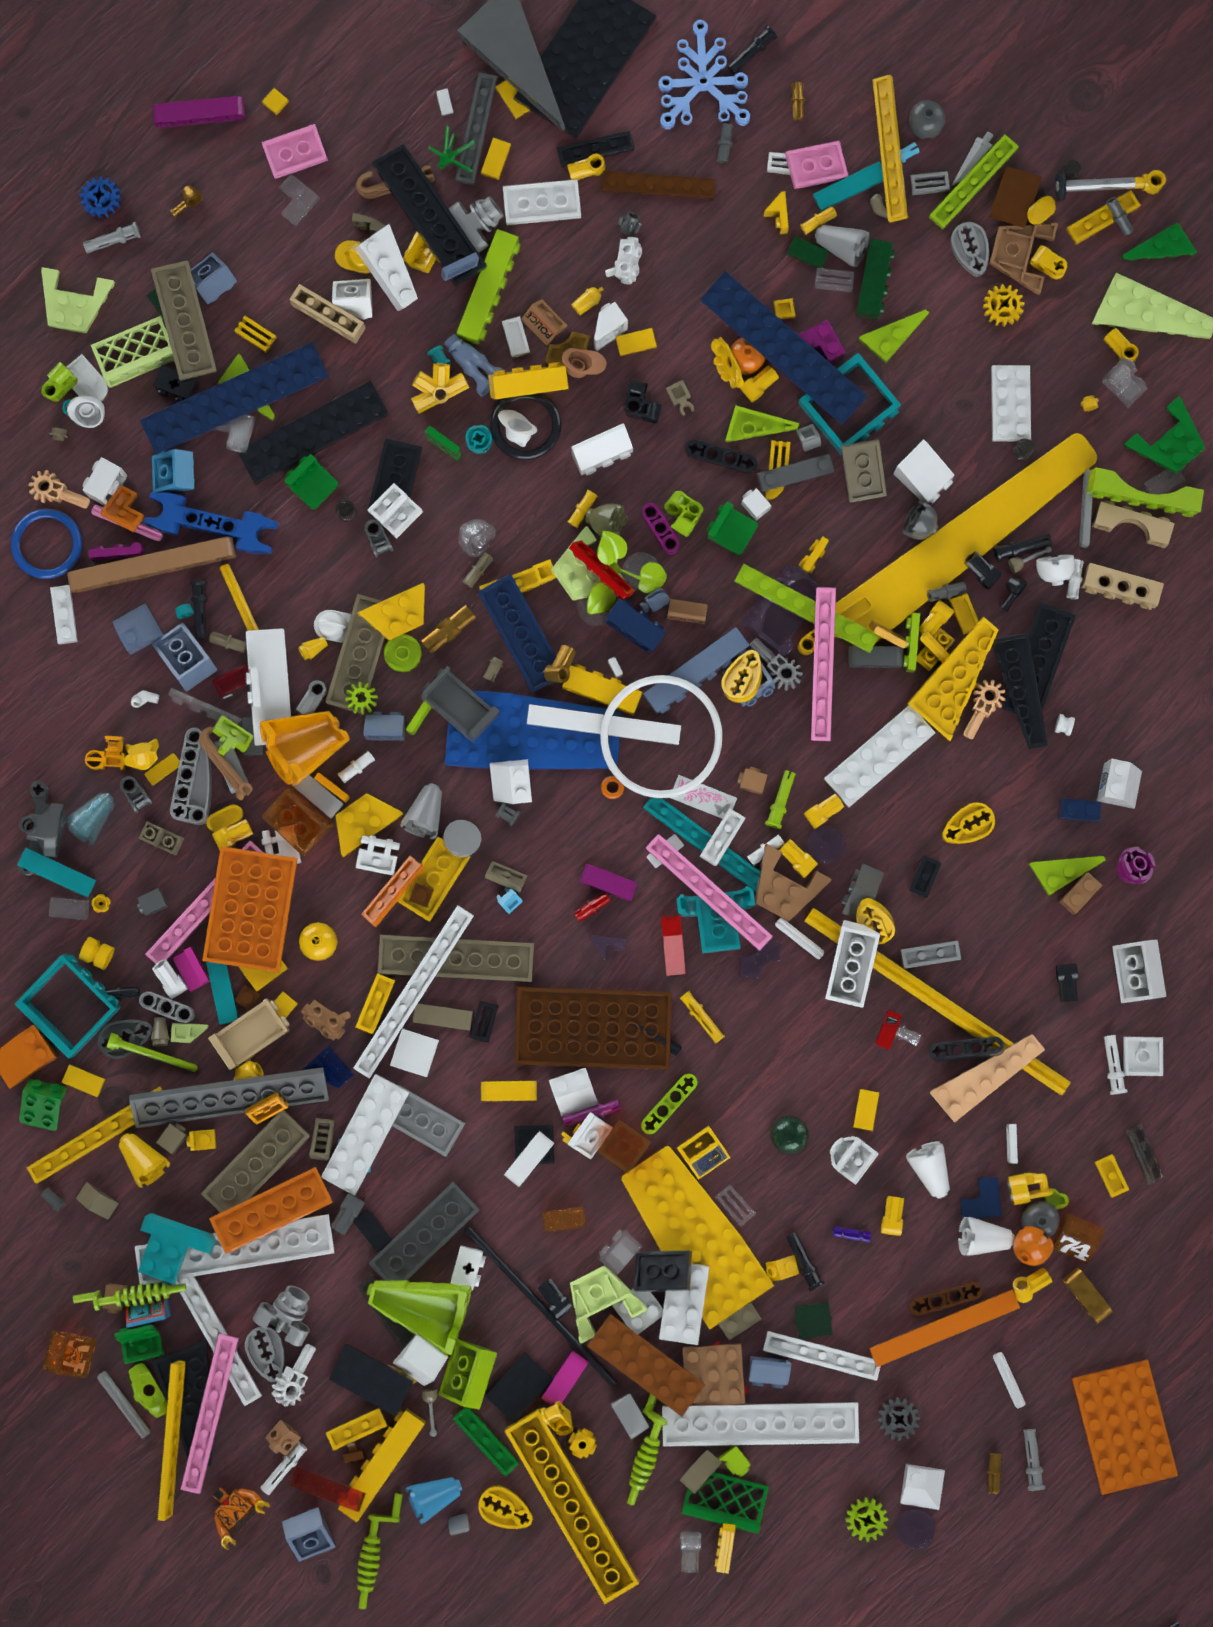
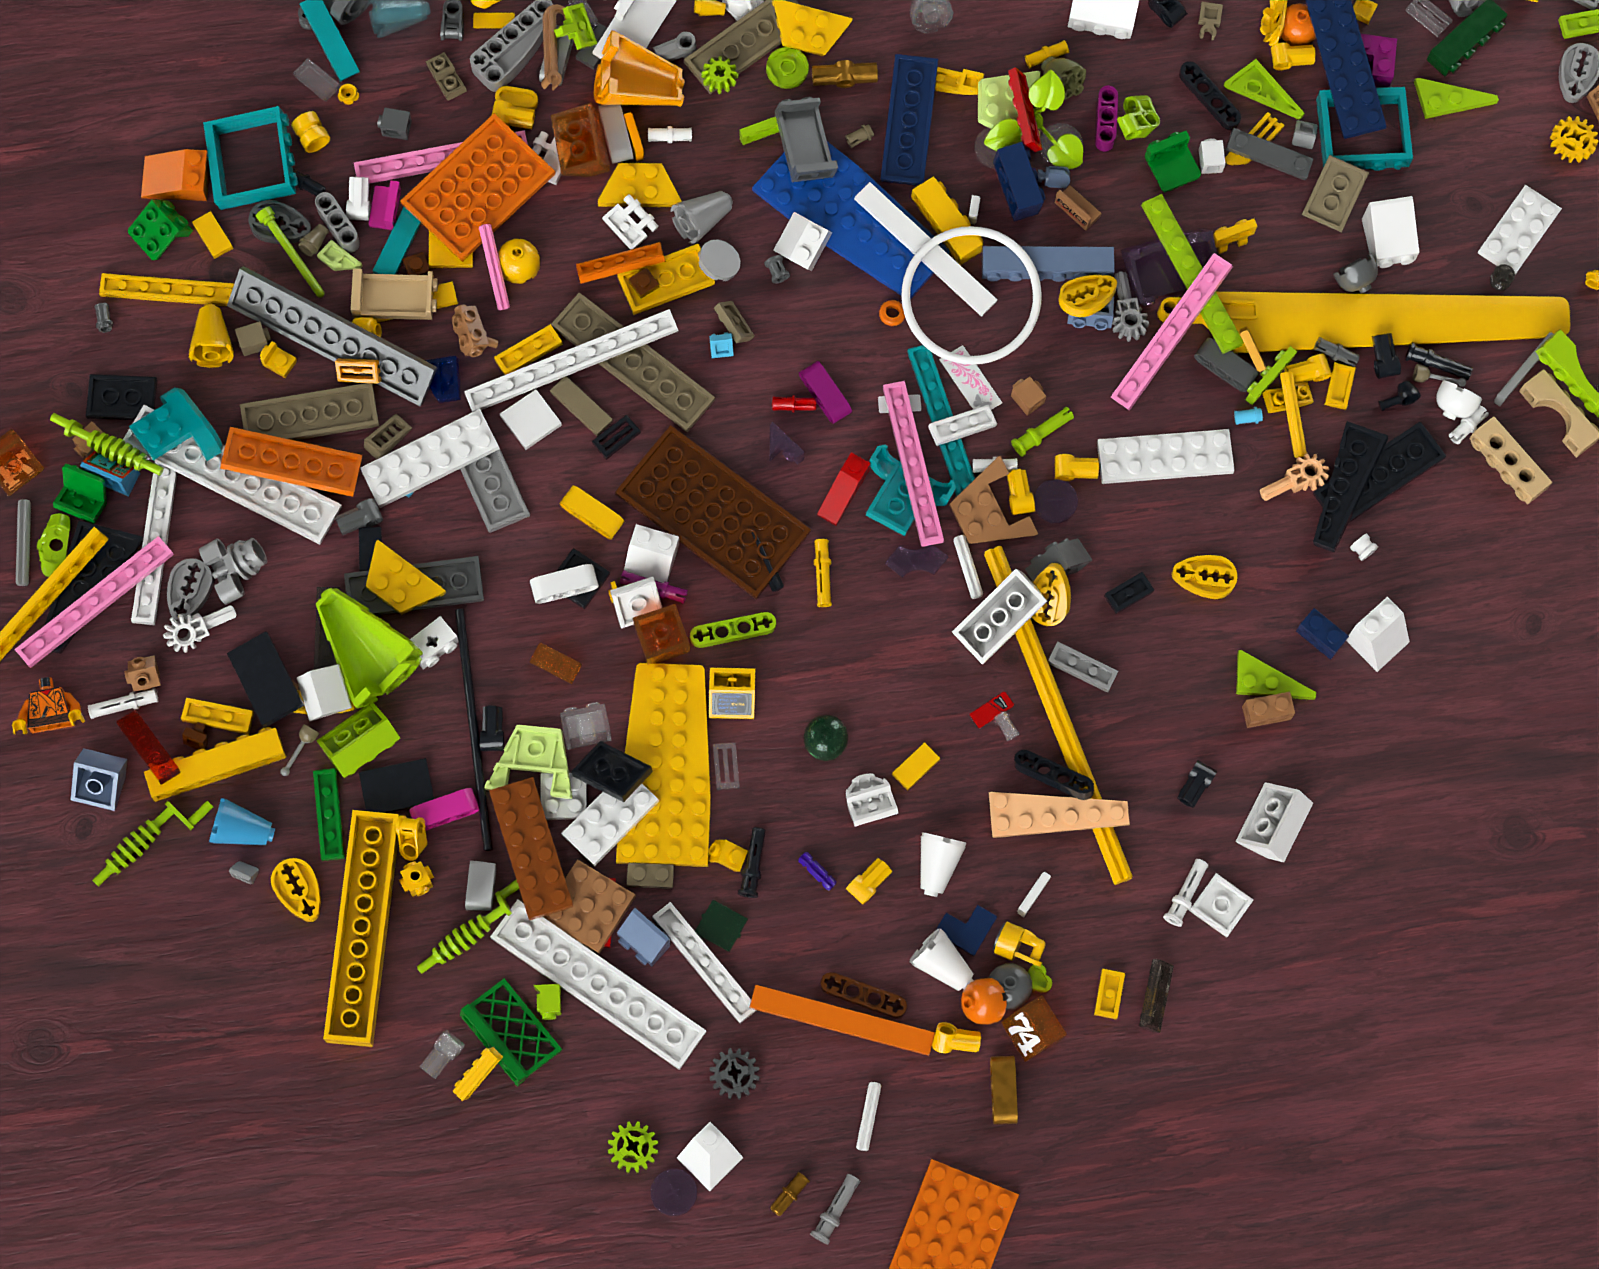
camera: 30 degrees right, 10 degrees down
(97, 1201) = (142, 348): dark tan slope -> none
(110, 1248) = (119, 396): none -> black tile
(306, 960) = (494, 267): none -> bright pink axle
(384, 726) = (721, 116): sand blue slope -> none
(412, 1241) = (398, 581): none -> yellow wing
(477, 570) = (910, 42): dark tan axle -> none
(559, 669) = (922, 171): pearl gold piece -> none
(700, 1471) = (508, 984): dark tan slope -> none
(916, 684) = (1248, 416): none -> medium azure pin
(950, 686) = (1275, 437): yellow wing -> none
(1135, 866) = (1340, 719): magenta cone -> none

